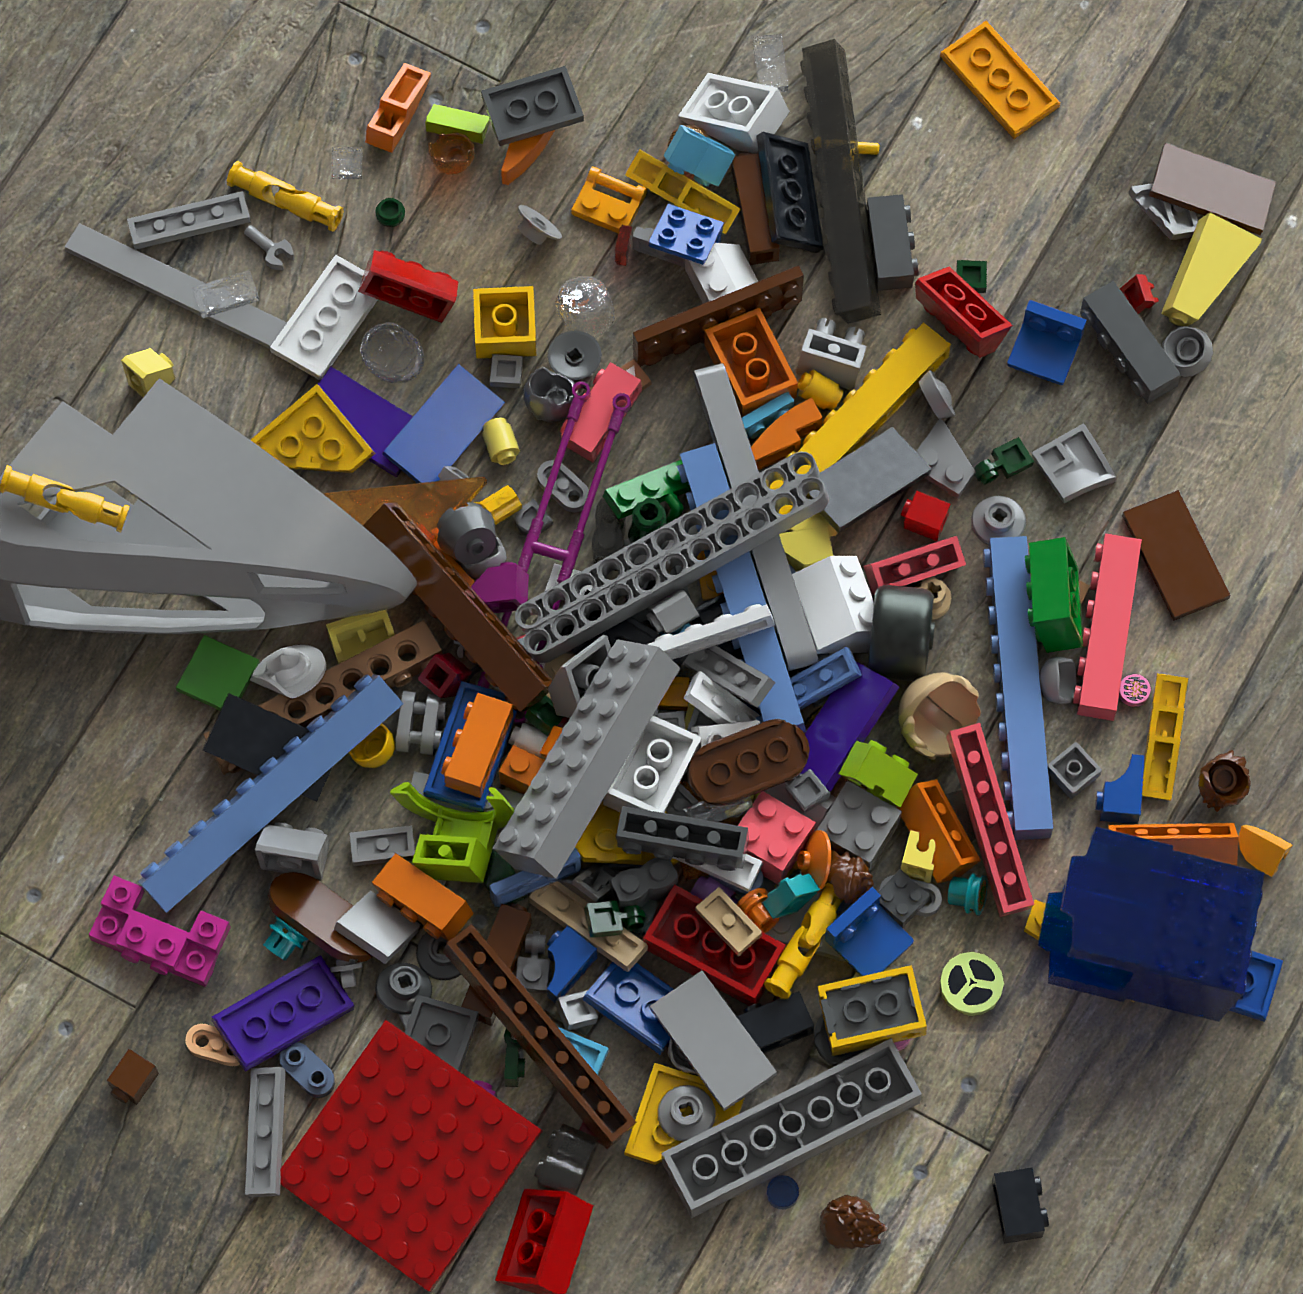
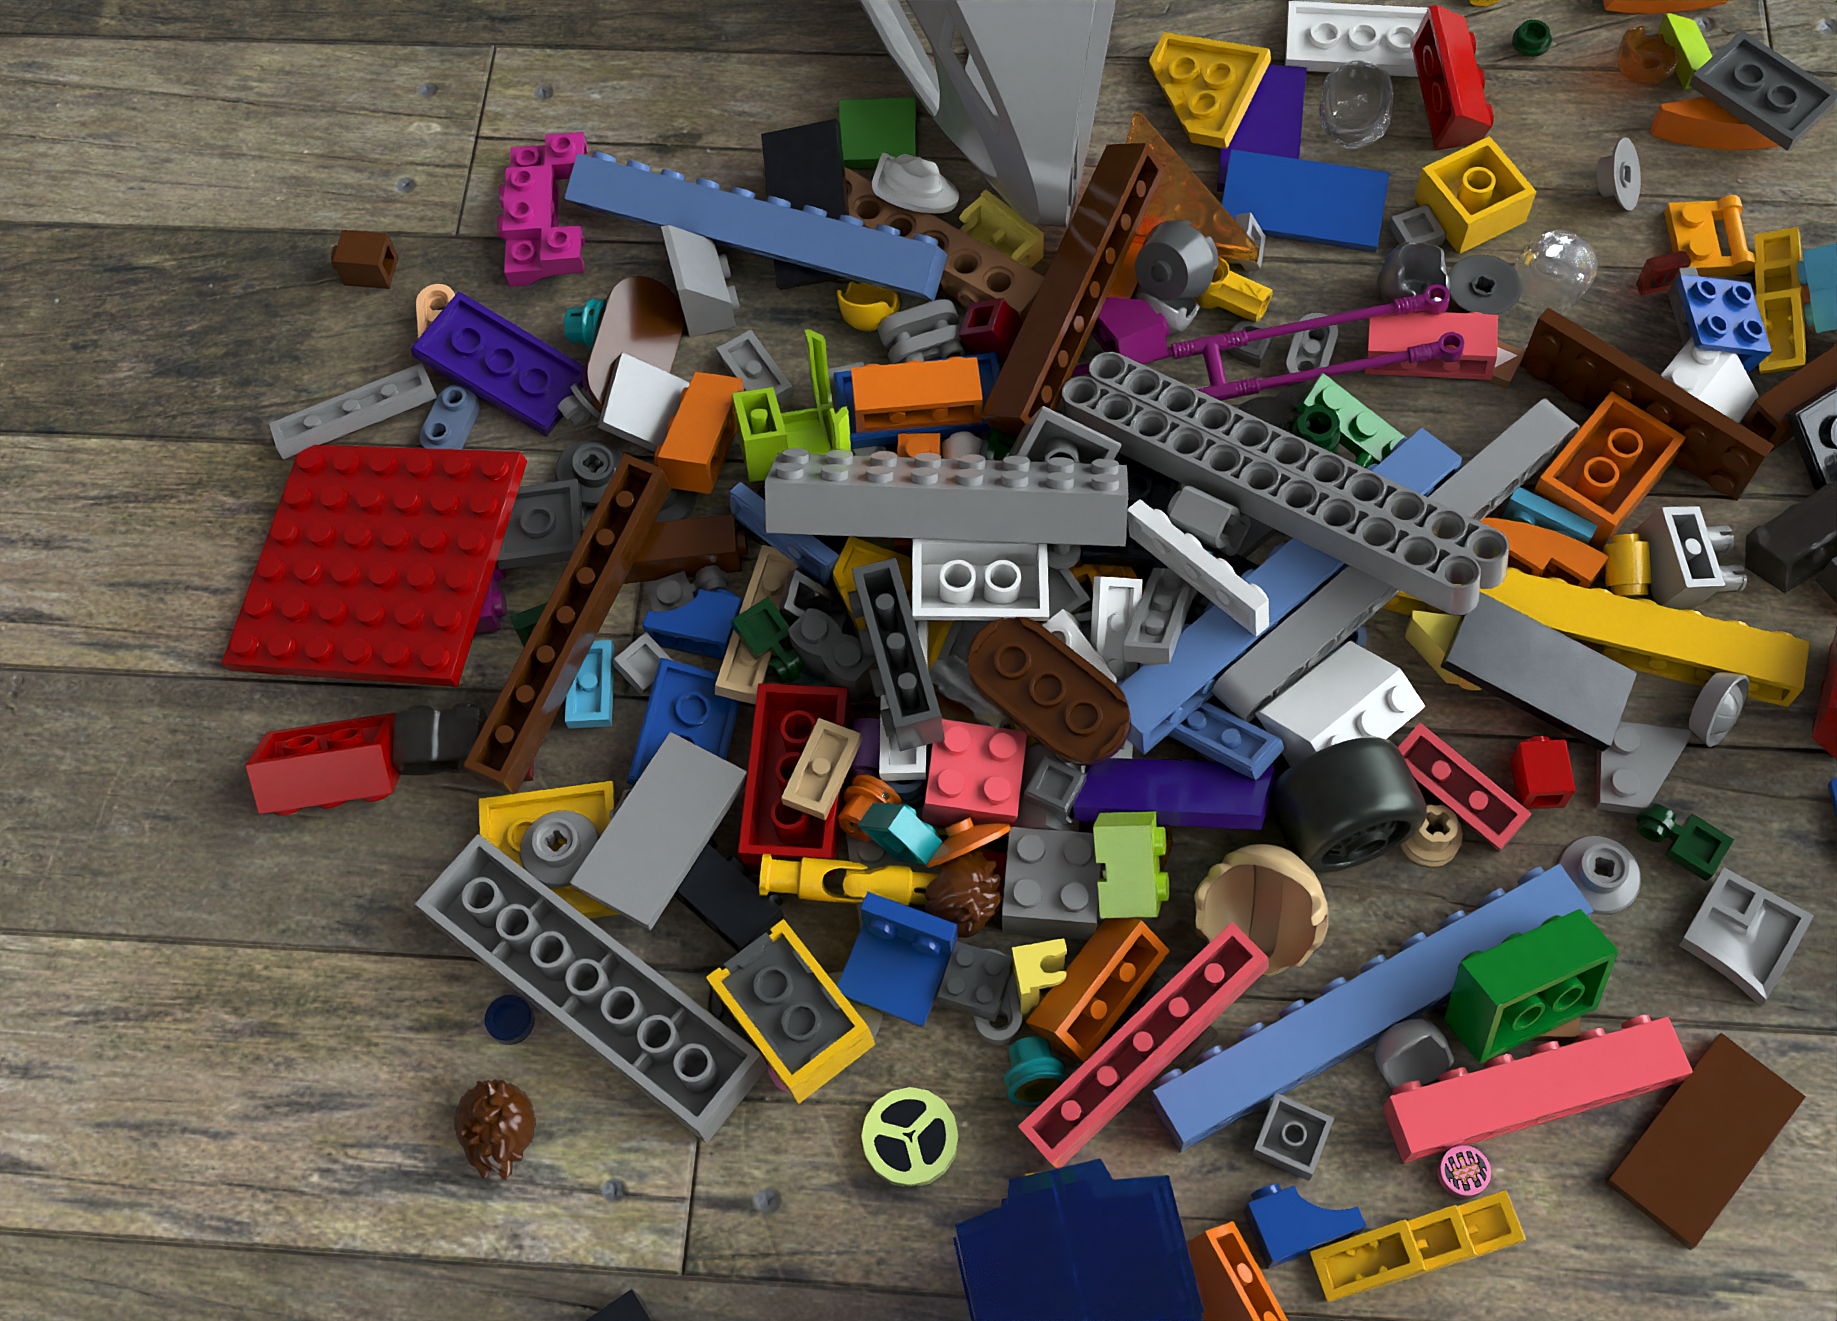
camera: 70 degrees right, 5 degrees down
(500, 441) = (1324, 262): light yellow brick -> none
(806, 546) = (1404, 643): light yellow slope -> none

